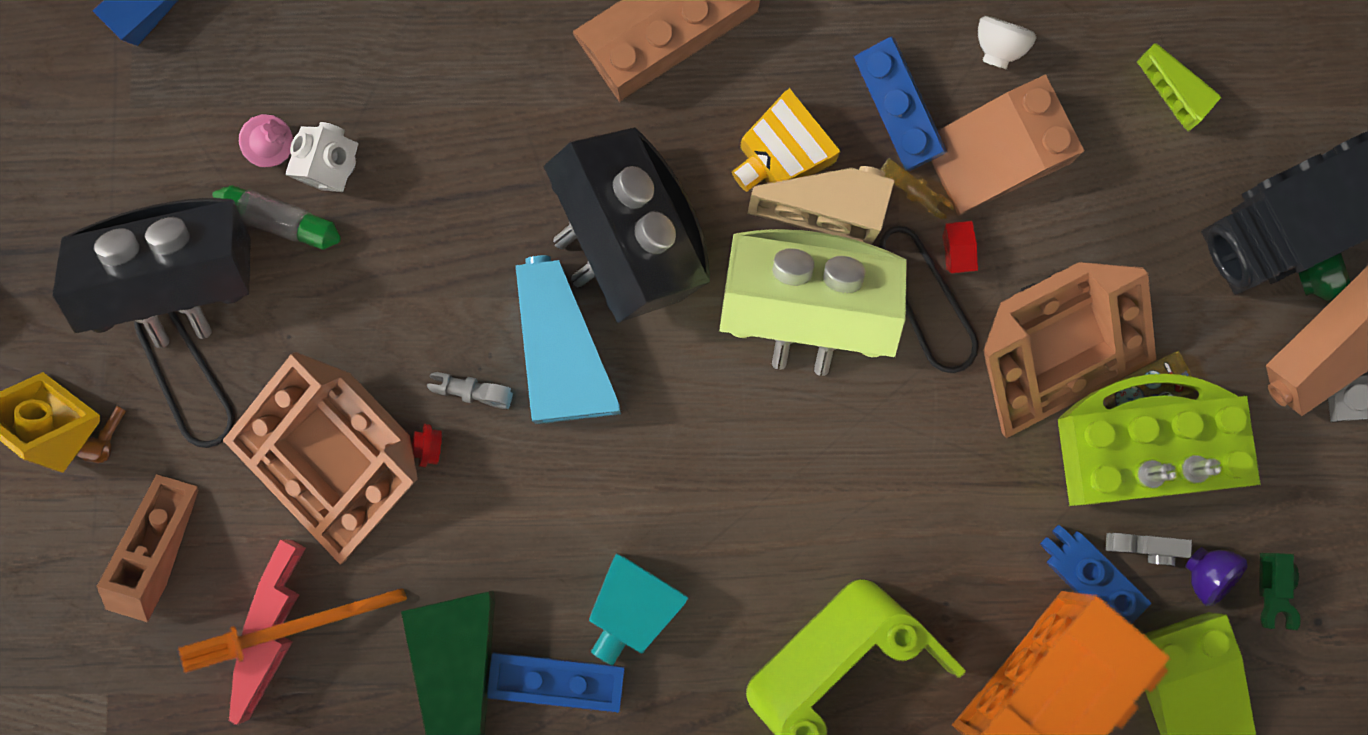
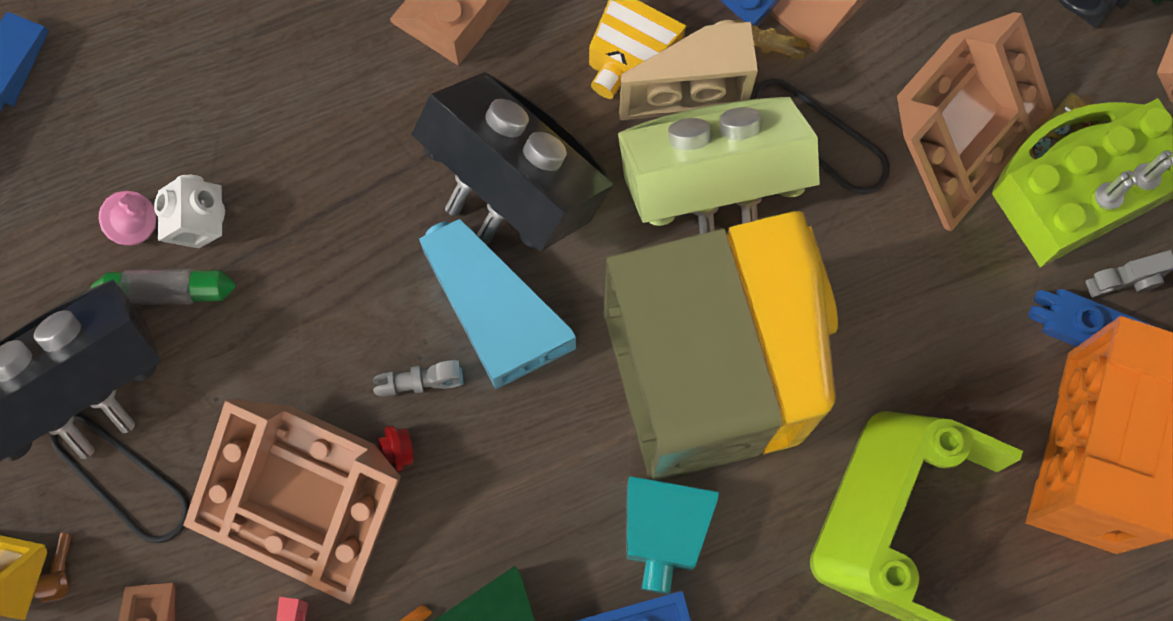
camera: 20 degrees left, 10 degrees down
(741, 478) = (723, 343): none -> olive piece
(960, 247) = (831, 74): red piece -> none

